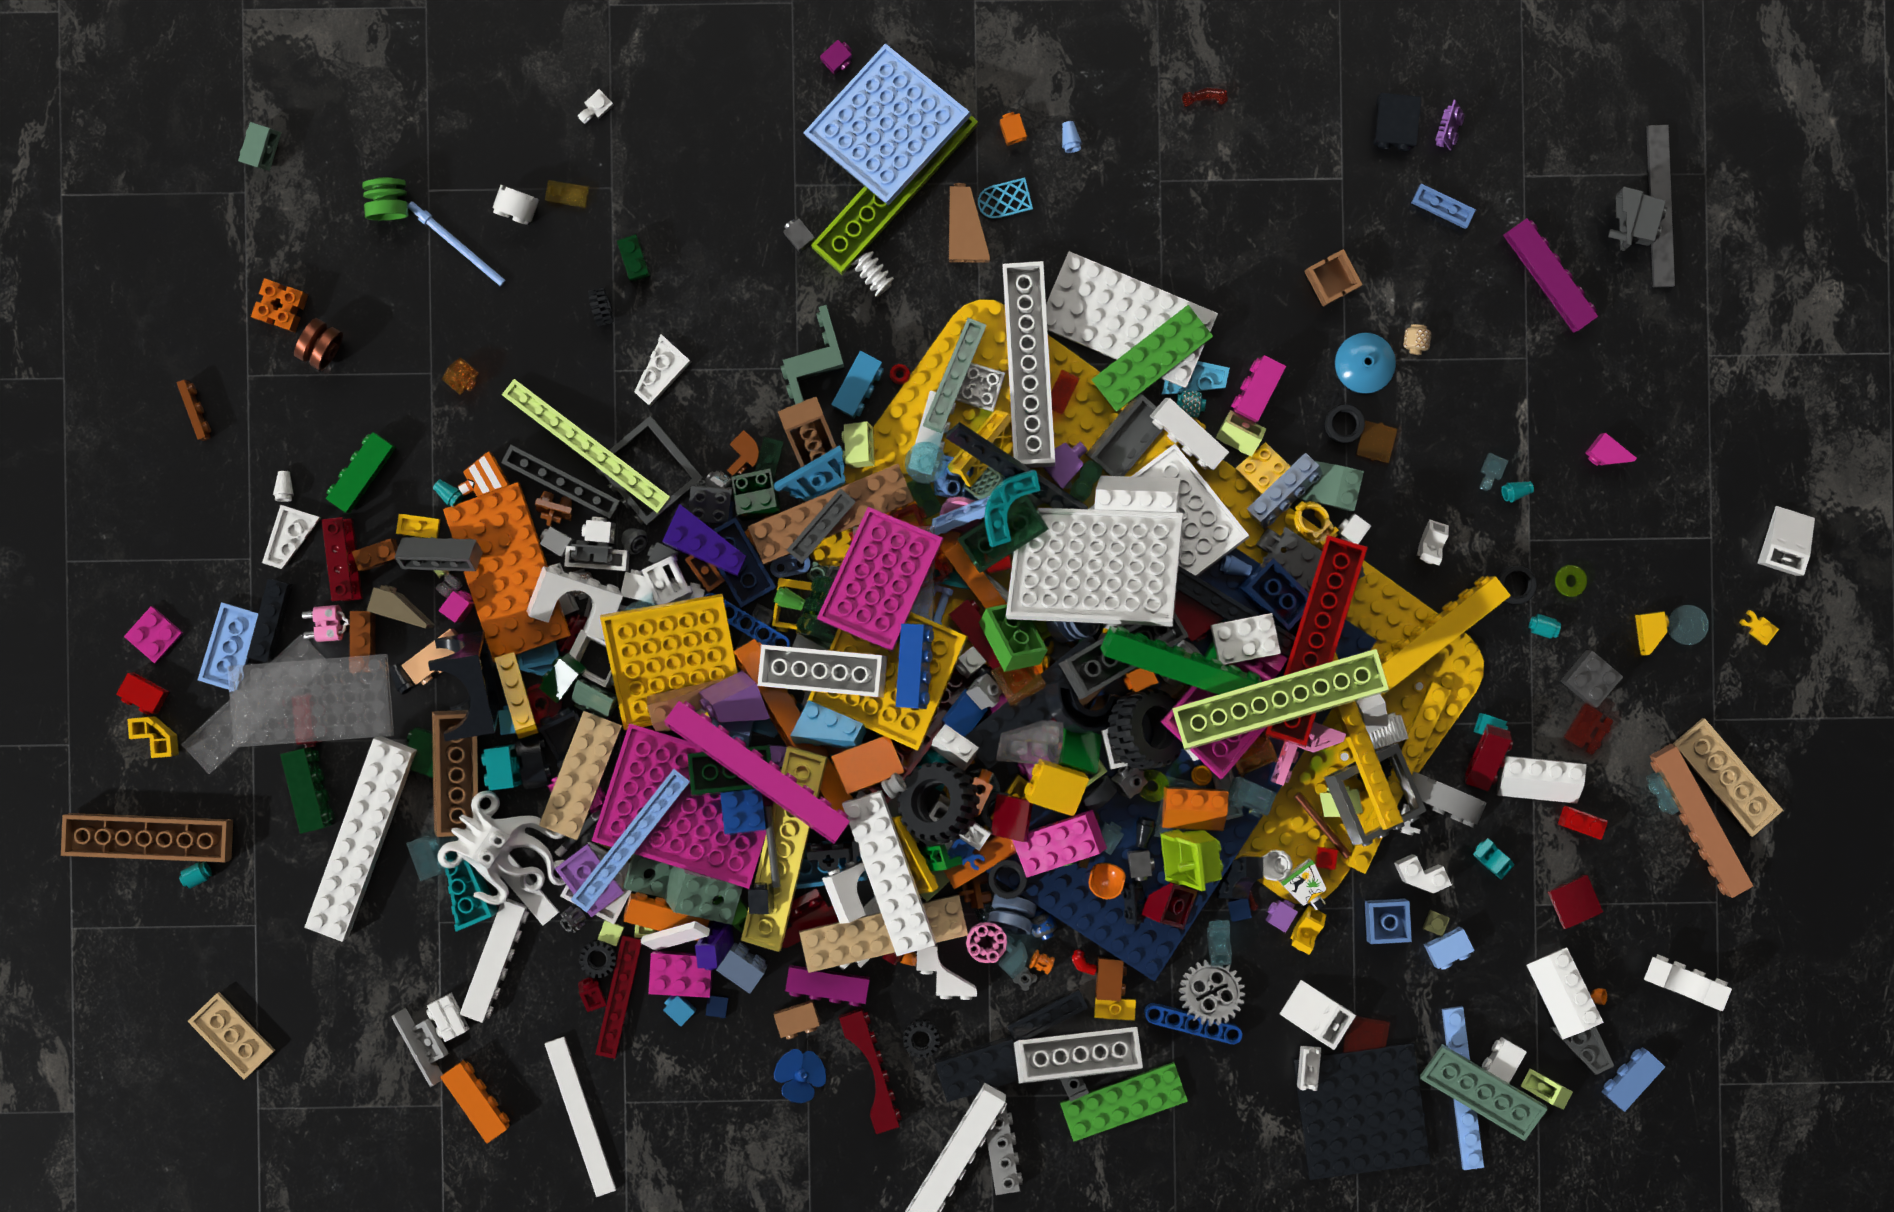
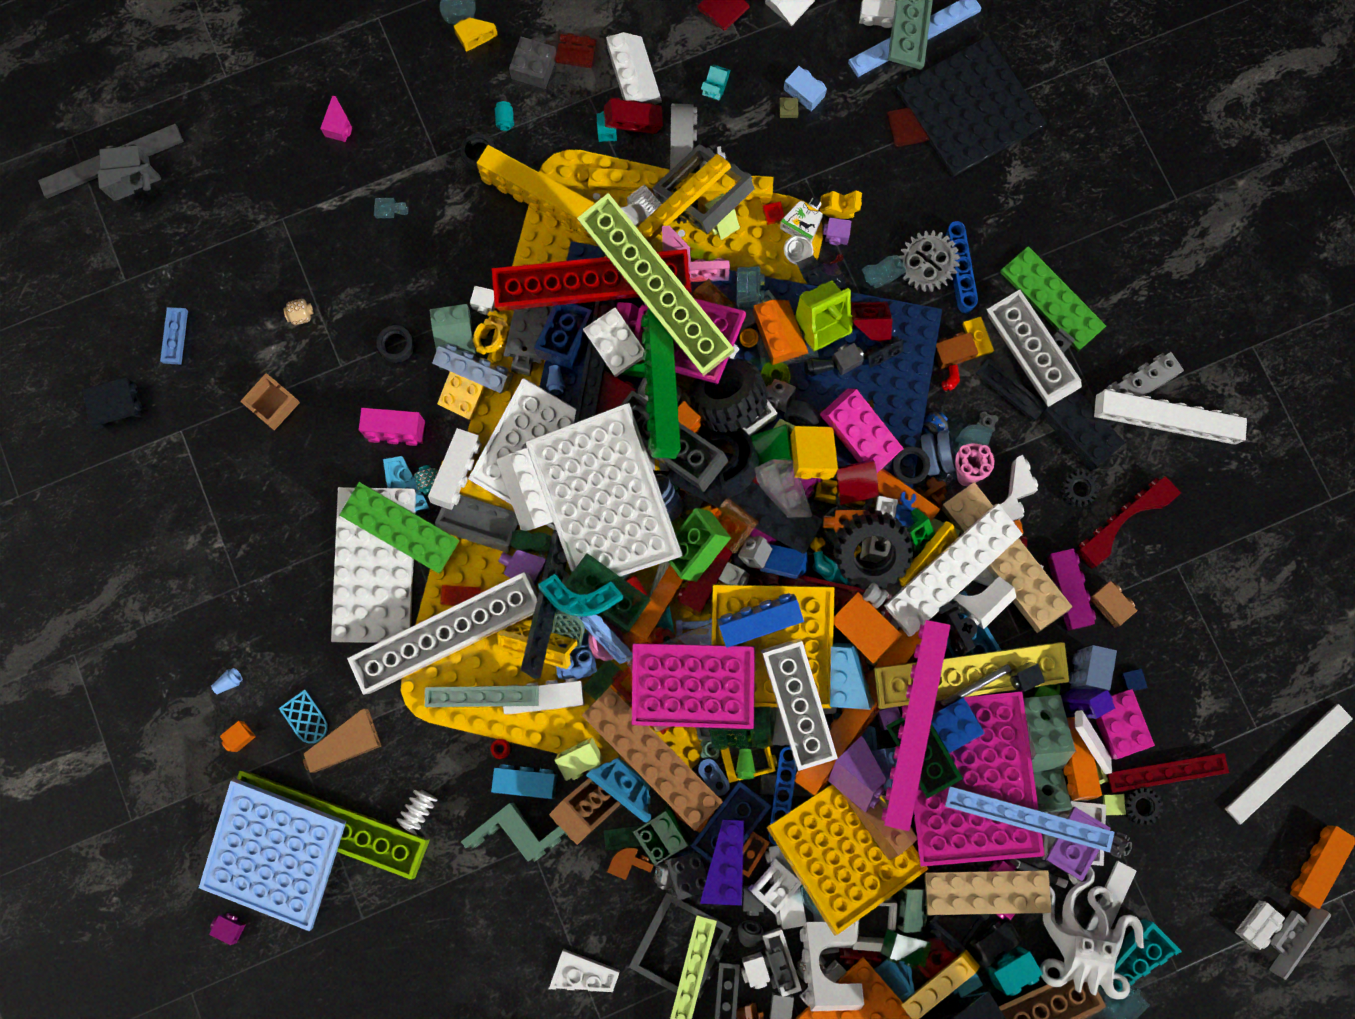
camera: 110 degrees left, 10 degrees down
(493, 960) = (1189, 903): white brick -> none
(591, 994) = (1177, 799): dark red bracket -> none
(679, 1009) = (1154, 712): dark azure brick -> none
(798, 234) = (406, 895): flat silver brick -> none
(800, 1069) = (1155, 582): blue piece -> none
(807, 913) = (1016, 630): dark red plate -> none
(821, 526) = (666, 761): dark grey plate -> none
(920, 452) = (563, 681): clear light blue brick -> none
(954, 747) = (816, 557): white brick -> none
(981, 387) = (483, 668): white tile -> none
(1041, 962) = (967, 413): orange bush -> none
(1106, 880) = (874, 379): orange helmet -> none
(1112, 836) = (833, 391): clear light blue brick -> none
(1213, 93) = (141, 566): clear red arm -> none
(1239, 909) = (849, 268): dark blue tile -> none
(1241, 433) = (437, 426): yellowish green brick -> none
(1308, 1067) = (956, 158): white hinge -> none
(1317, 1014) = (908, 168): white slope -> none
(1322, 825) = (747, 227): copper bar -> none
(1352, 368) = (342, 357): dark azure dish -> none
(1376, 442) = (401, 311): clear orange piece -> none
(1388, 921) = (804, 143): medium blue brick -> none
(1431, 880) = (754, 123): white brick -> none
(1432, 542) = (469, 232): white brick -> none
(1452, 118) = (96, 358): medium lavender hinge -> none
(1515, 490) = (399, 183): teal cone -> none
(1550, 275) = (202, 225): magenta brick -> none
(1580, 576) = (453, 104): clear neon green piece -> none
(1582, 822) = (655, 24): red brick -> none

